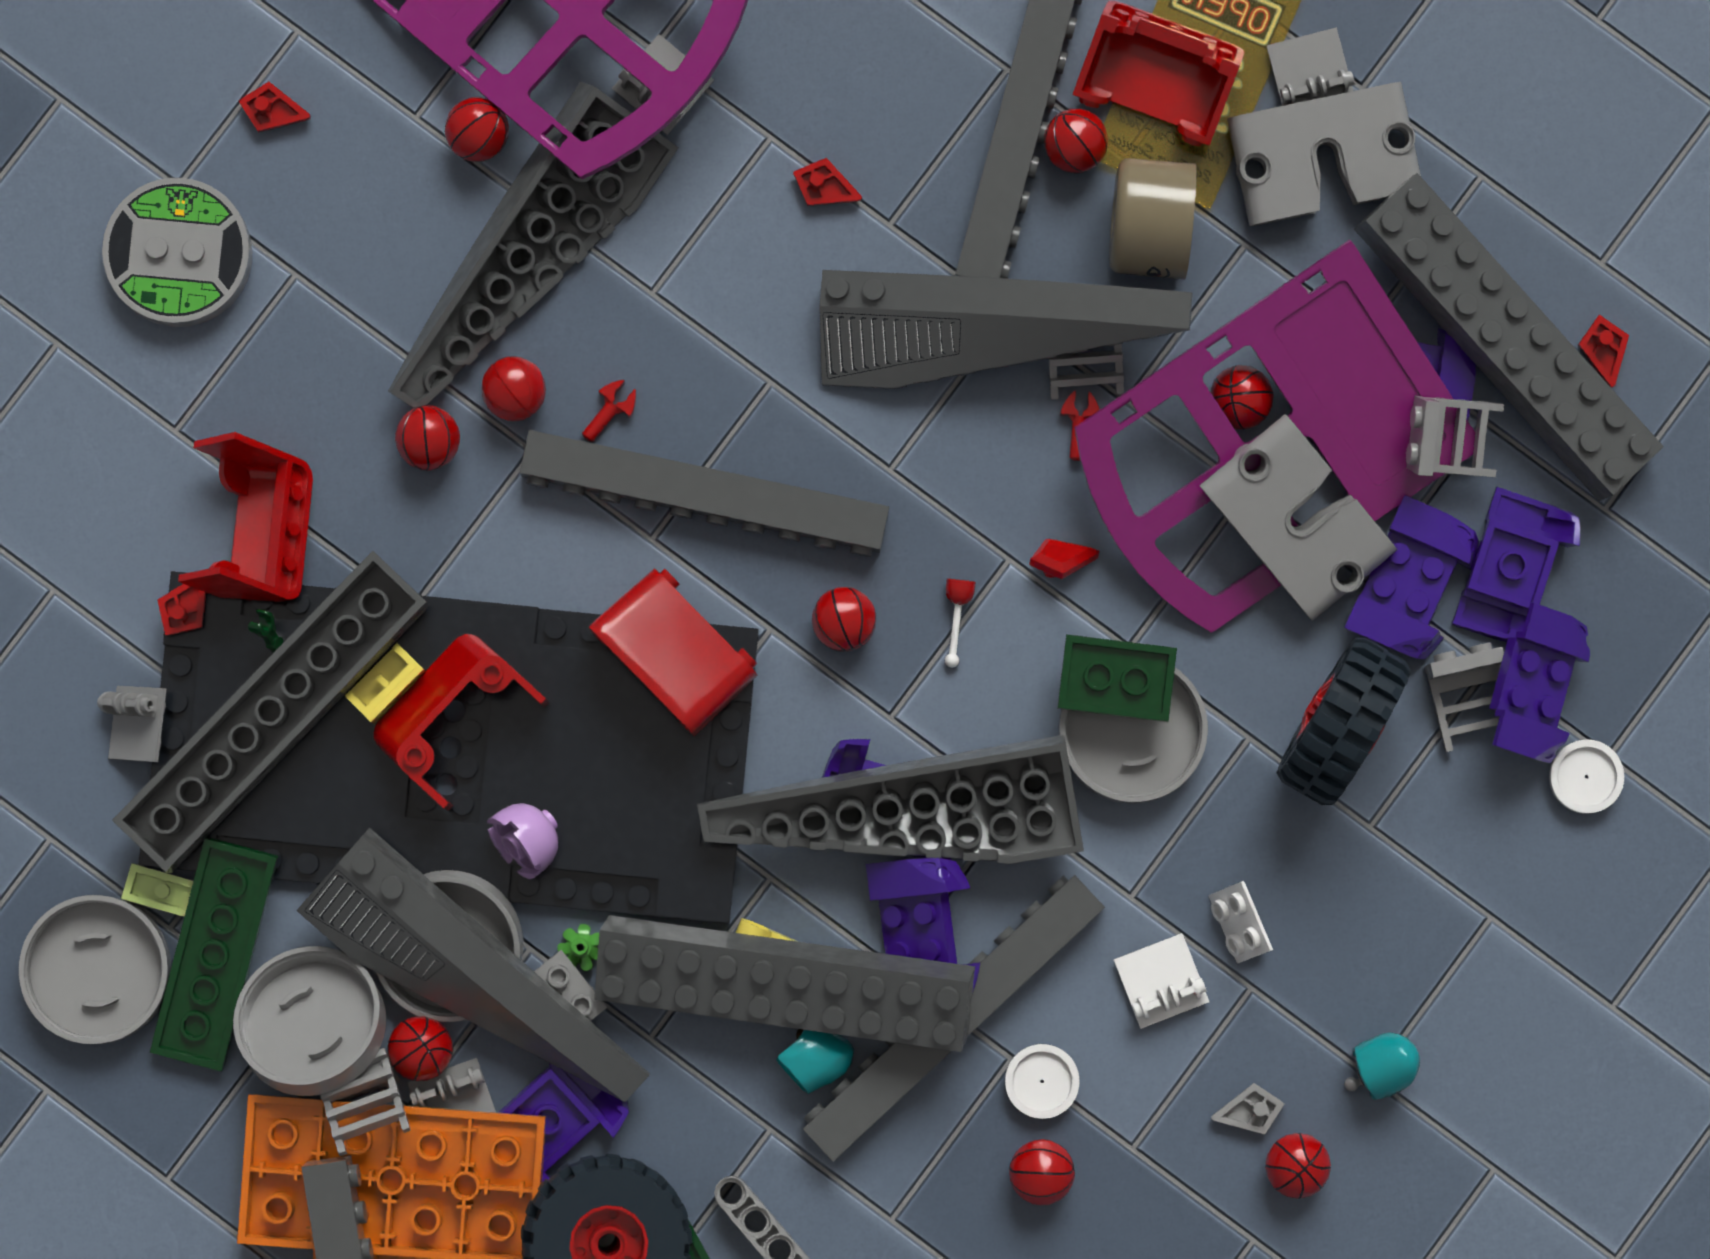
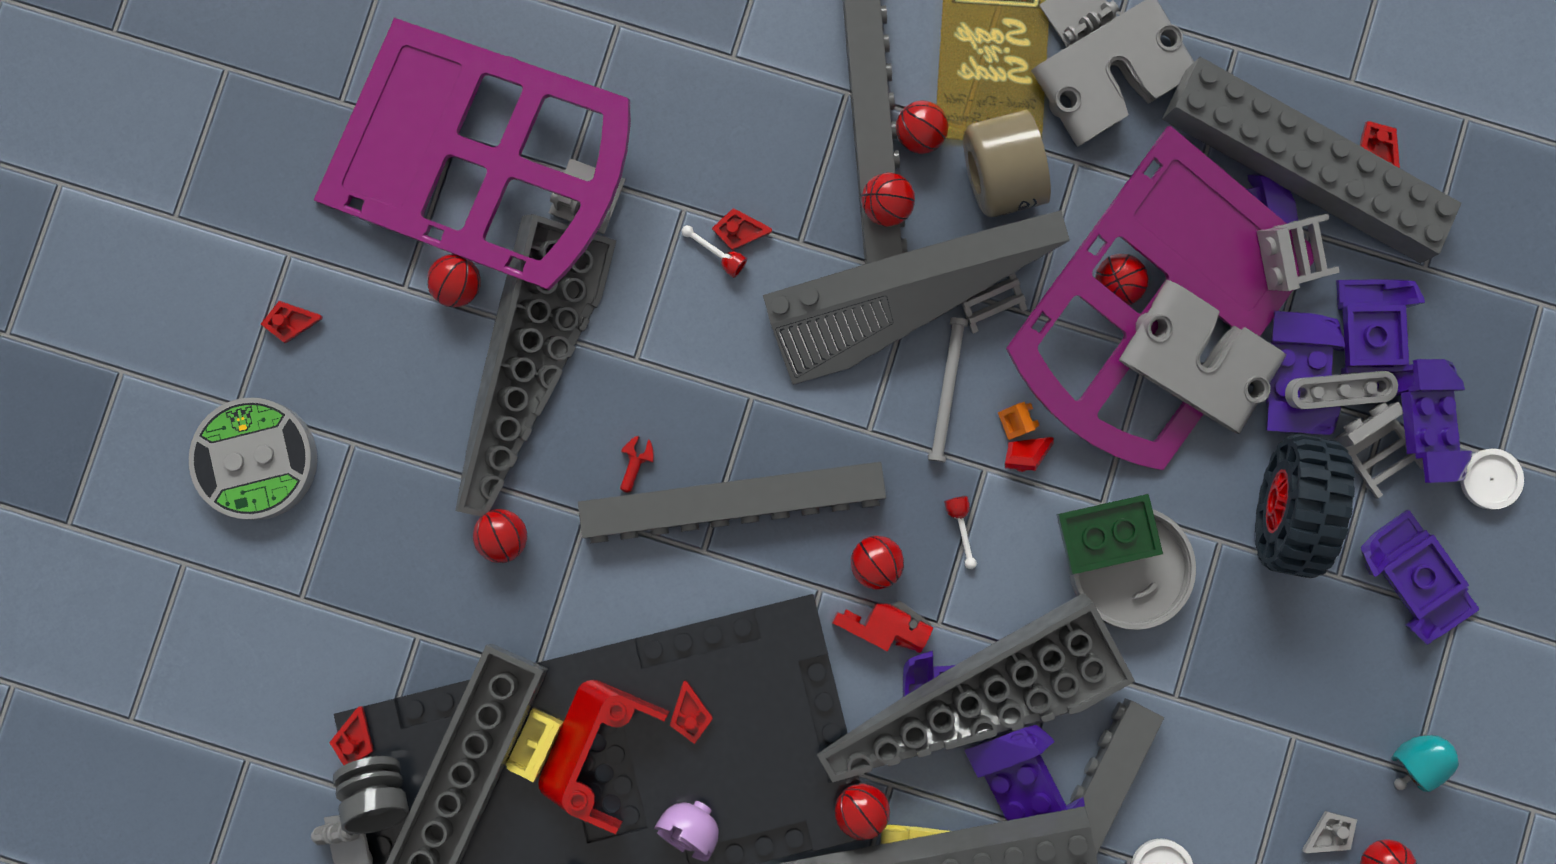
camera: 20 degrees left, 0 degrees up
(187, 670) = (370, 795): none -> dark grey wheel
(266, 630) = (424, 737): dark green piece -> none
(269, 522) = (398, 647): red windscreen -> none
(513, 388) = (554, 473): red piece -> none
(571, 712) = (690, 714): none -> red piece
(674, 650) = (754, 638): red windscreen -> none
(725, 885) = (862, 811): none -> red piece
(802, 219) = (731, 262): none -> hinge
(831, 694) = (888, 624): none -> red plate
(997, 453) = (948, 389): none -> light grey bar
(1002, 211) = (888, 199): none -> red piece
(1063, 516) = (1017, 420): none -> orange tile
(1068, 409) = (1001, 343): red bar -> none
(1159, 70) = (968, 52): red windscreen -> none
(1161, 980) = (1225, 756): white hinge -> none
(1240, 922) = (1273, 690): white hinge -> none
(1444, 610) = (1341, 390): none -> light grey plate
(1460, 859) = (1420, 576): none -> dark purple piece

